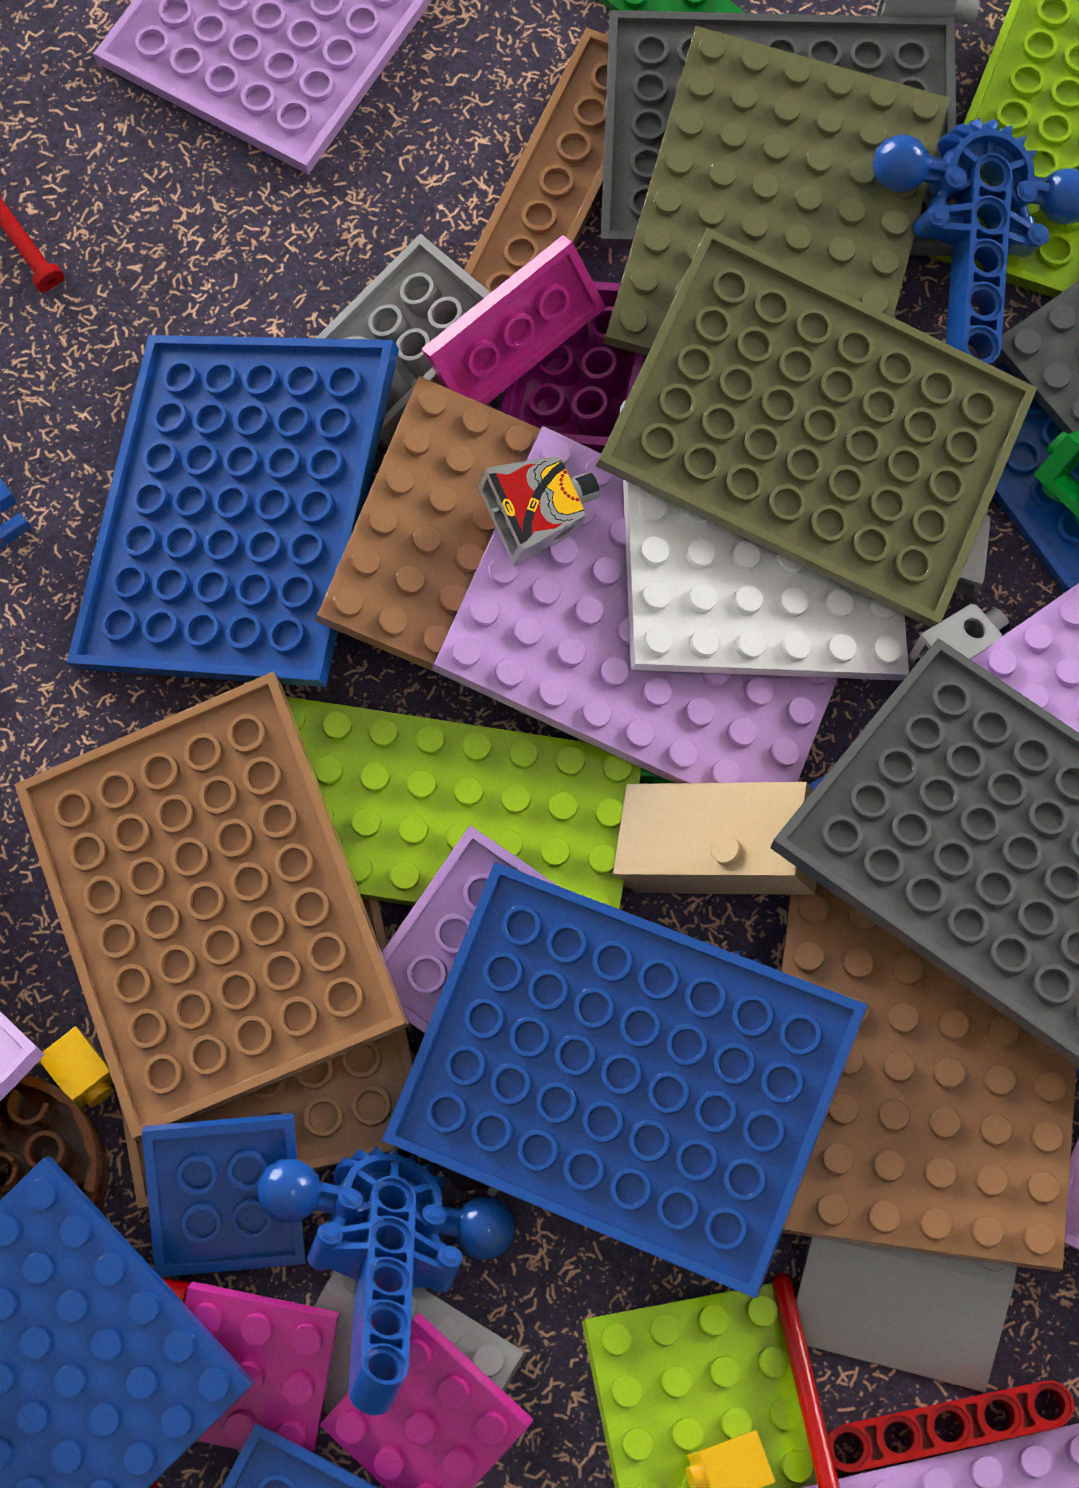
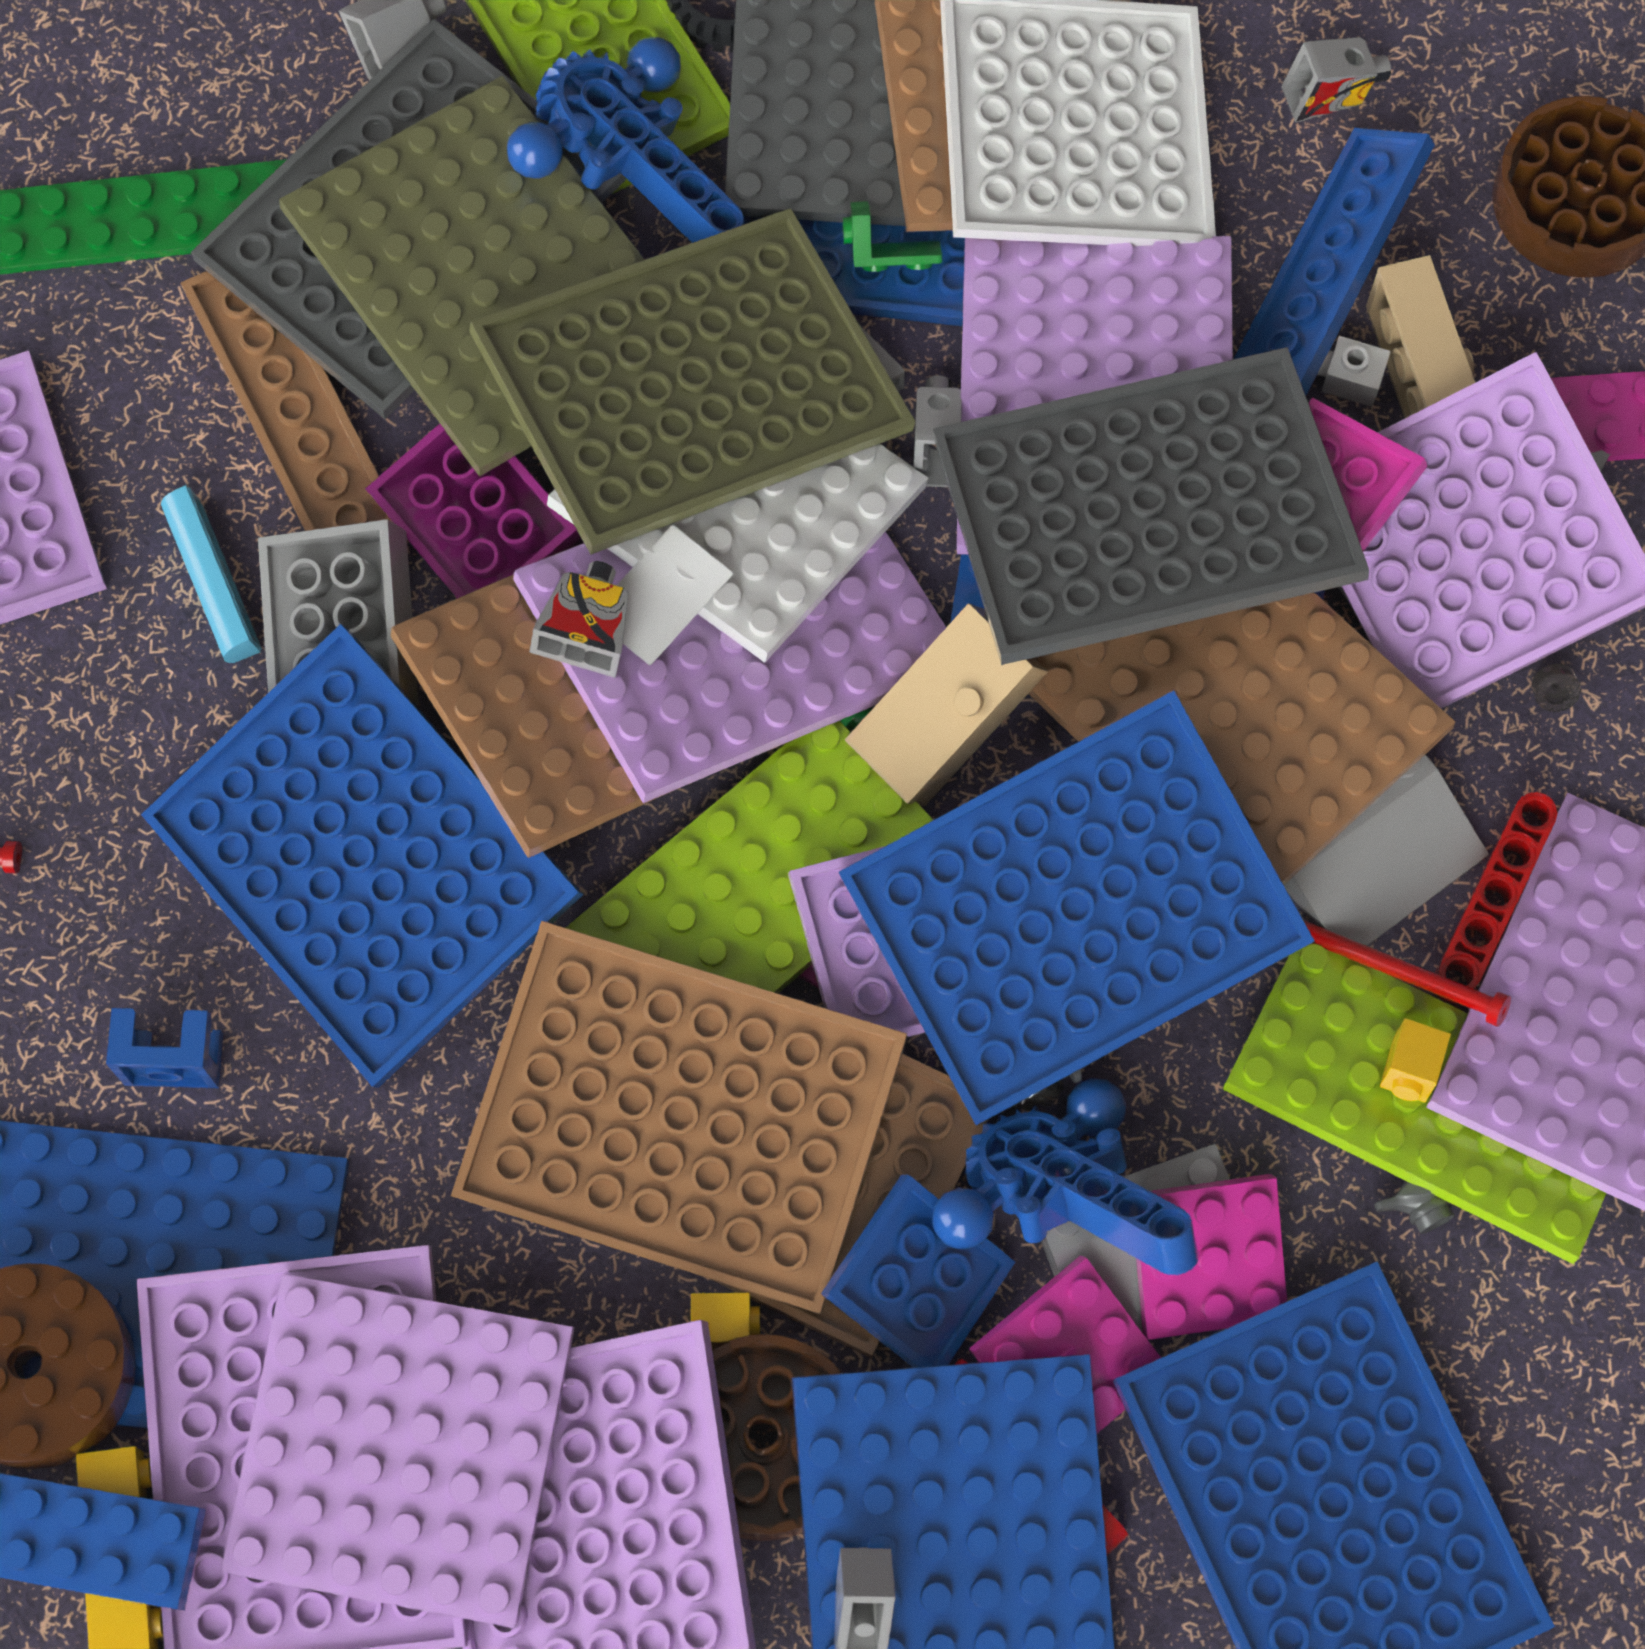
camera: 55 degrees left, 0 degrees up
(377, 231) = (210, 575): none -> medium azure brick
(516, 324) = (411, 524): dark pink plate -> none
(610, 548) = (661, 599): none -> white sticker

